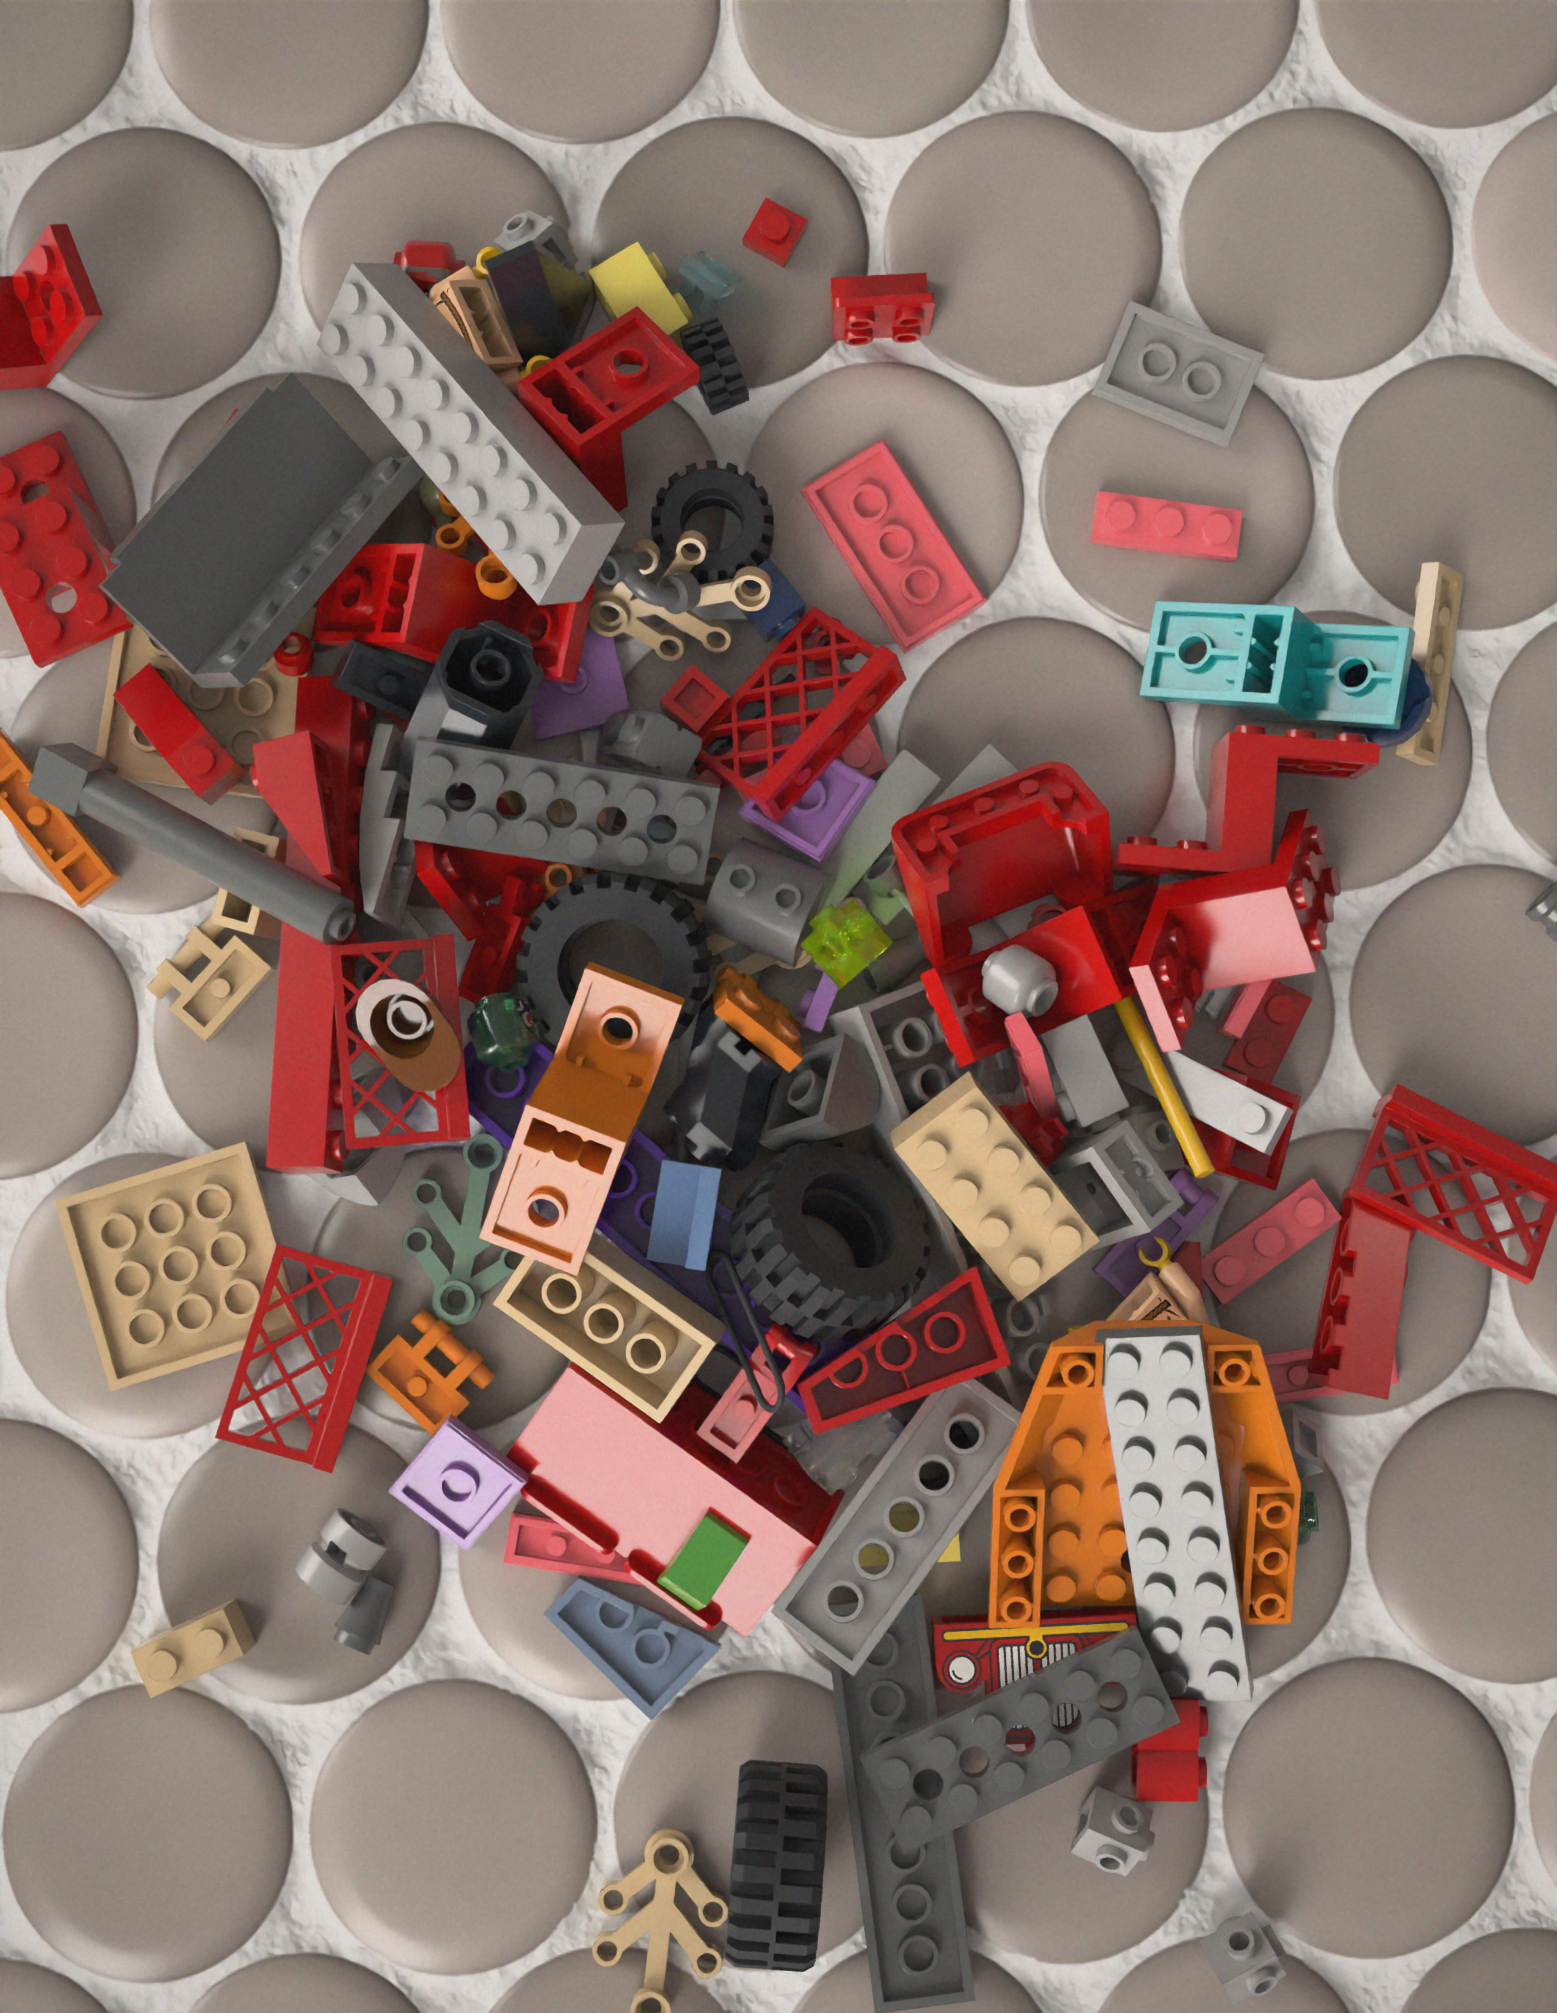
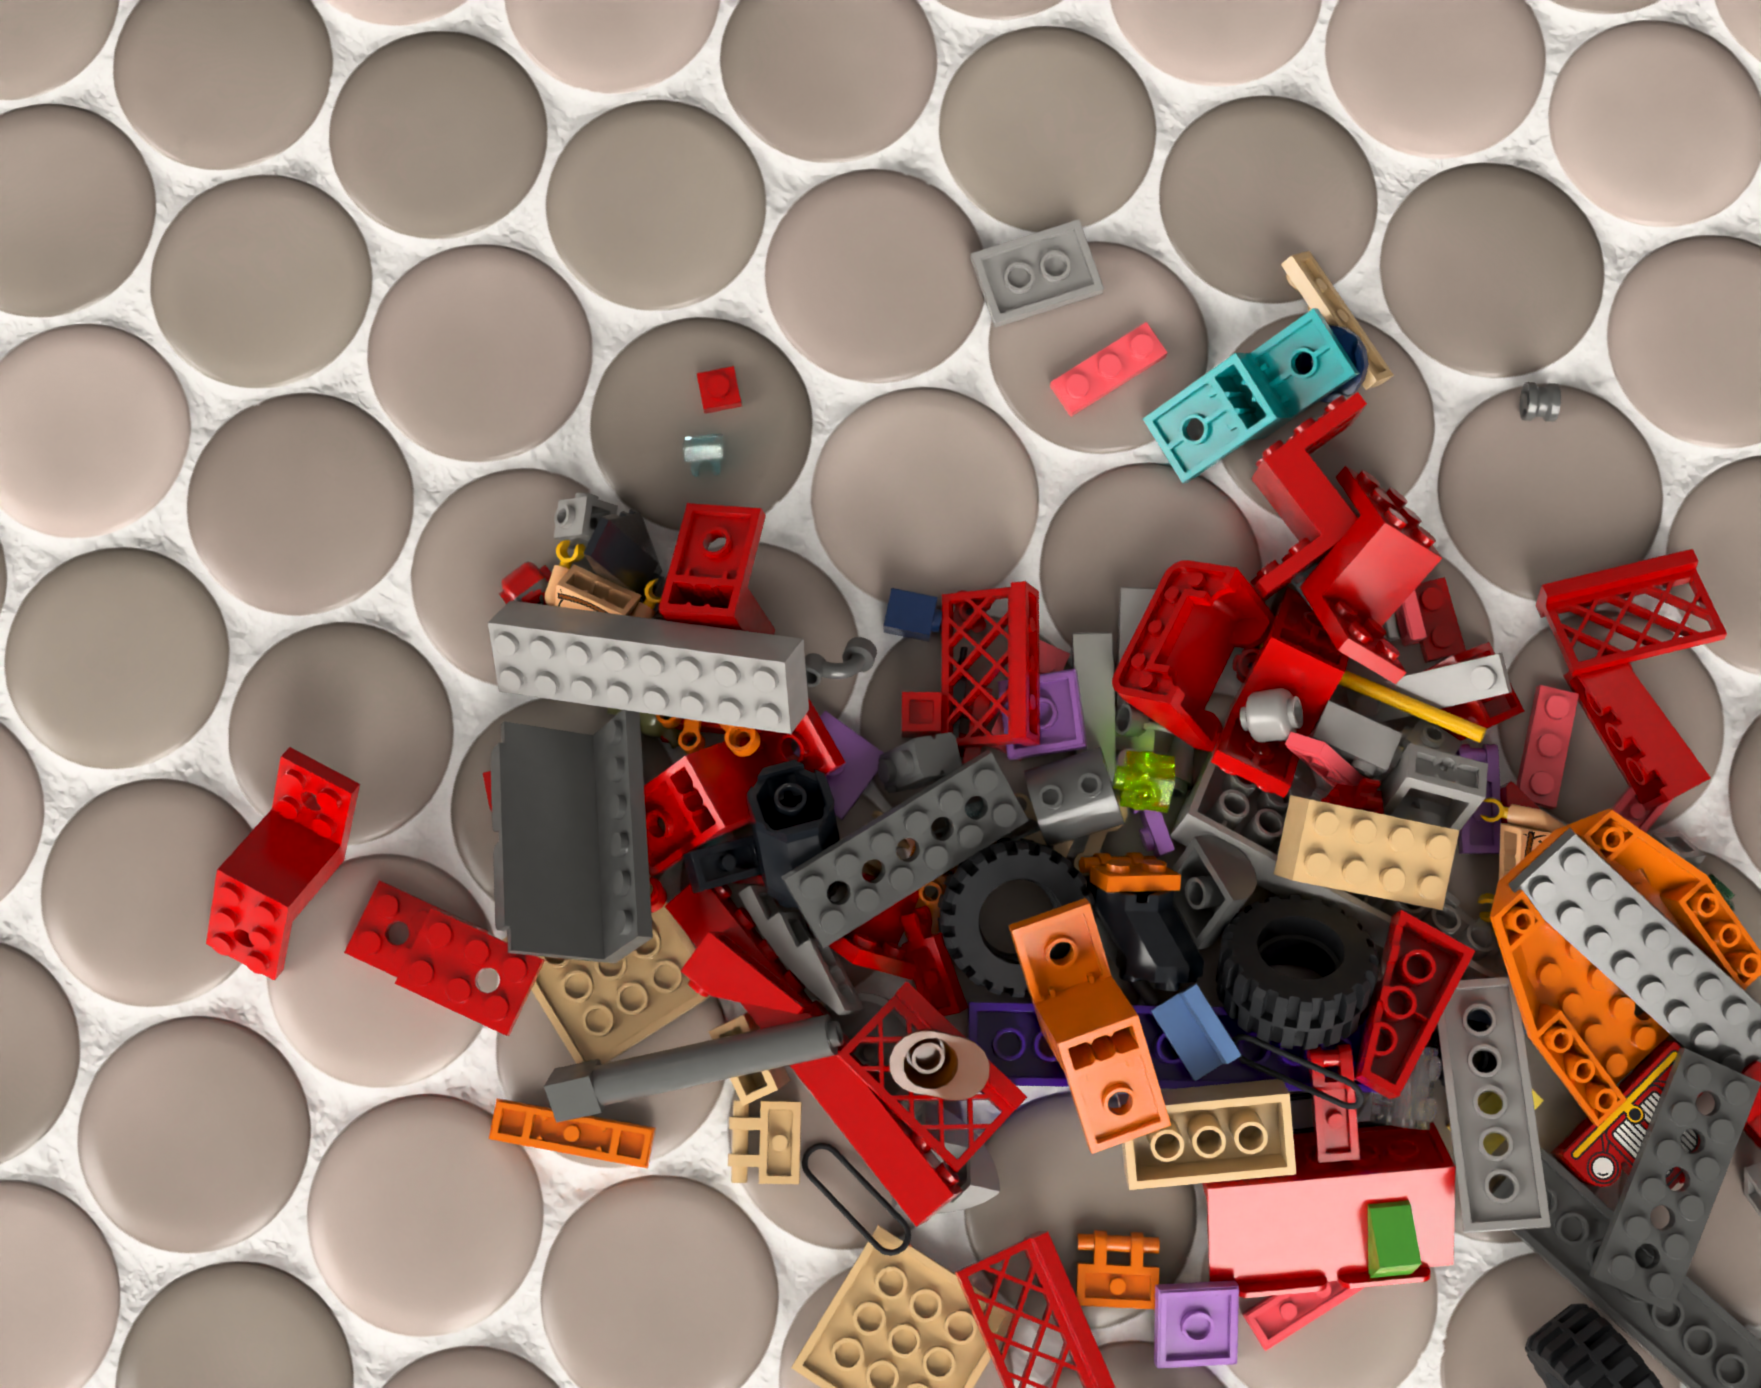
camera: 35 degrees left, 5 degrees down
(179, 735) = (619, 1004): red slope -> none
(225, 1096) = (844, 1211): none -> black piece
(461, 1237) = (1067, 1168): sand green plant -> none
(503, 1031) = (987, 1015): clear green head -> none
(631, 1644) = (1389, 1331): sand blue wing -> none
(633, 608) = (833, 690): tan plant -> none
(637, 280) = (664, 494): light yellow brick -> none
(720, 372) = (749, 491): black tyre -> none
(721, 489) = (833, 567): black tyre -> none
(881, 308) = (823, 381): red bracket -> none
(893, 546) = (955, 518): coral tile -> none

